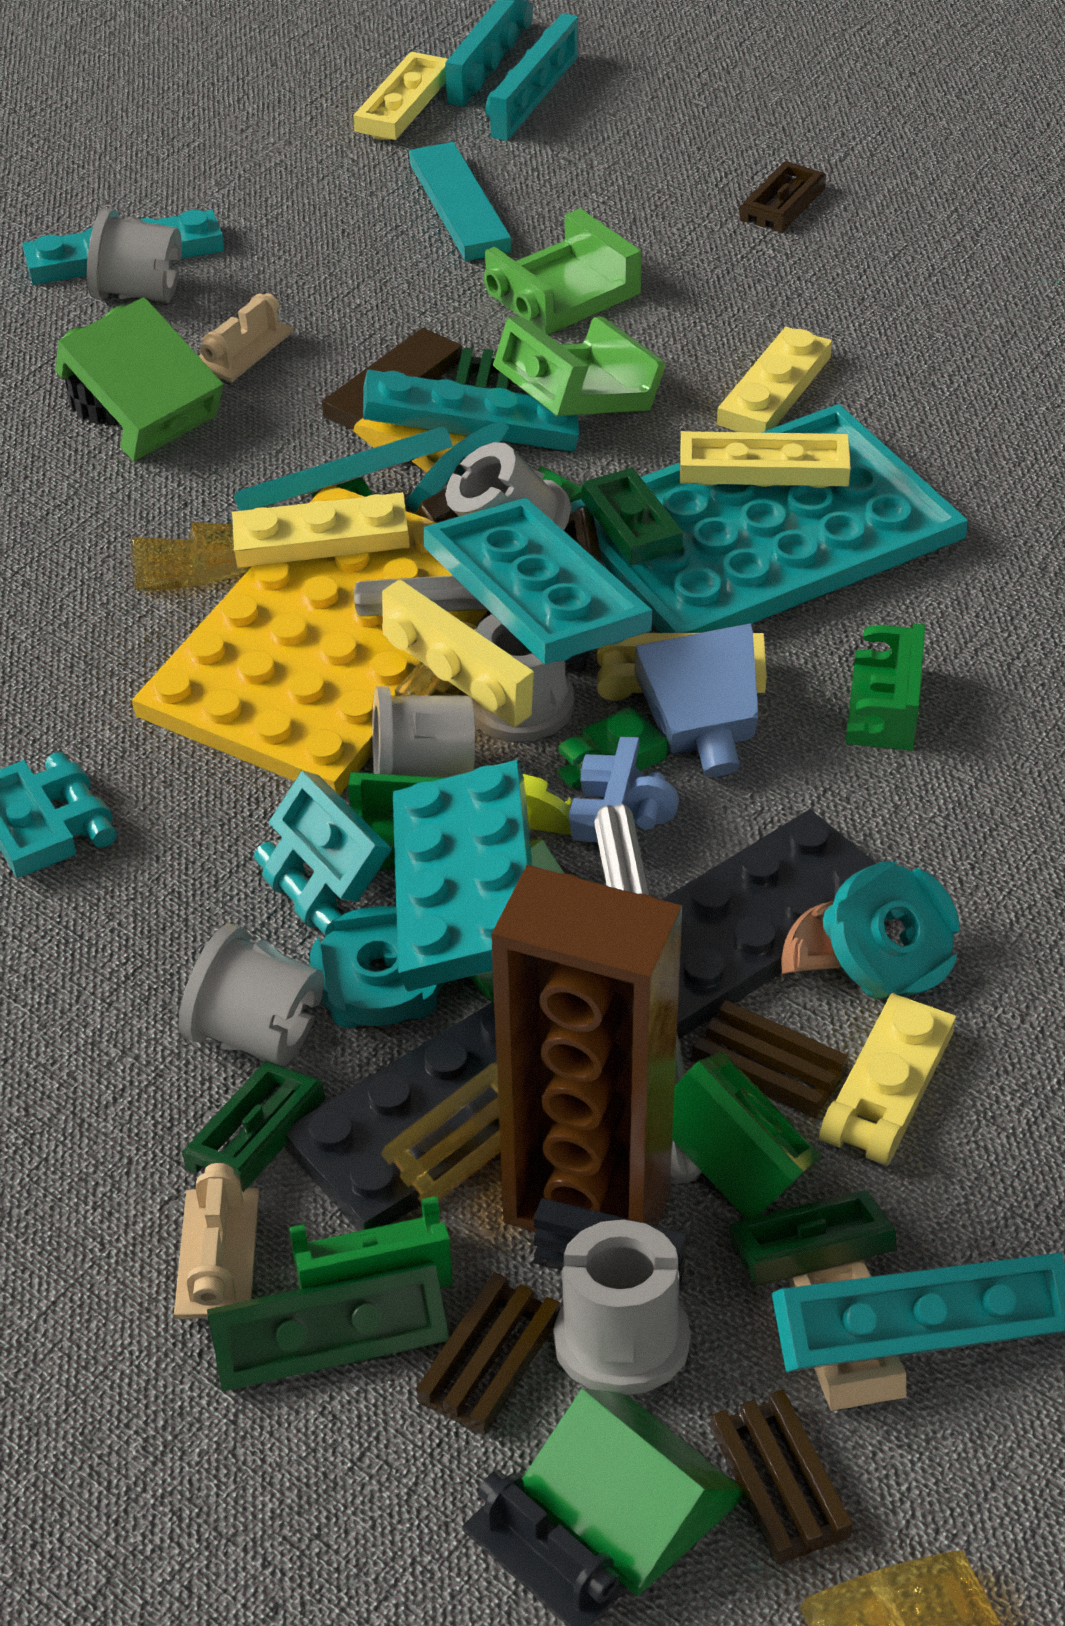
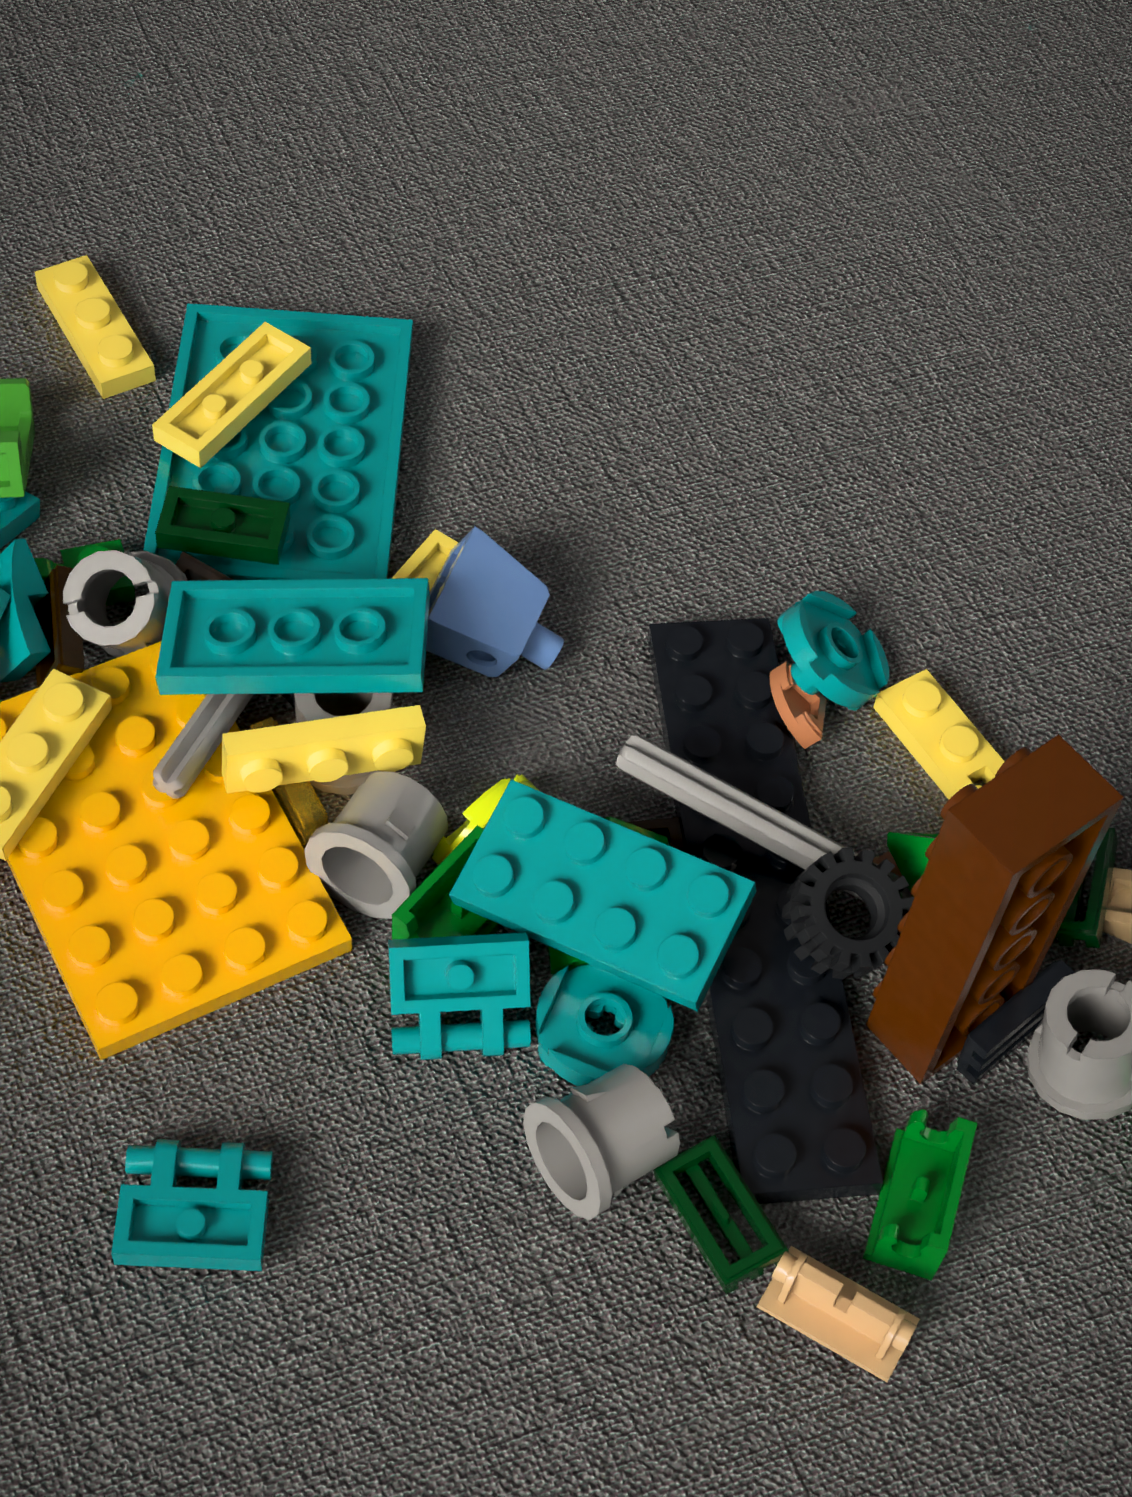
camera: 65 degrees left, 10 degrees up
(327, 1325) = (977, 1267): dark green plate -> none
(416, 1171) = (846, 1060): clear yellow tile -> none
(516, 1304) = (1074, 1150): dark brown tile -> none
(603, 739) = (469, 709): green plate -> none
(619, 783) = (550, 732): medium blue hips -> none
(776, 1051) = (872, 789): dark brown tile -> none
(886, 688) = (555, 491): green hinge -> none

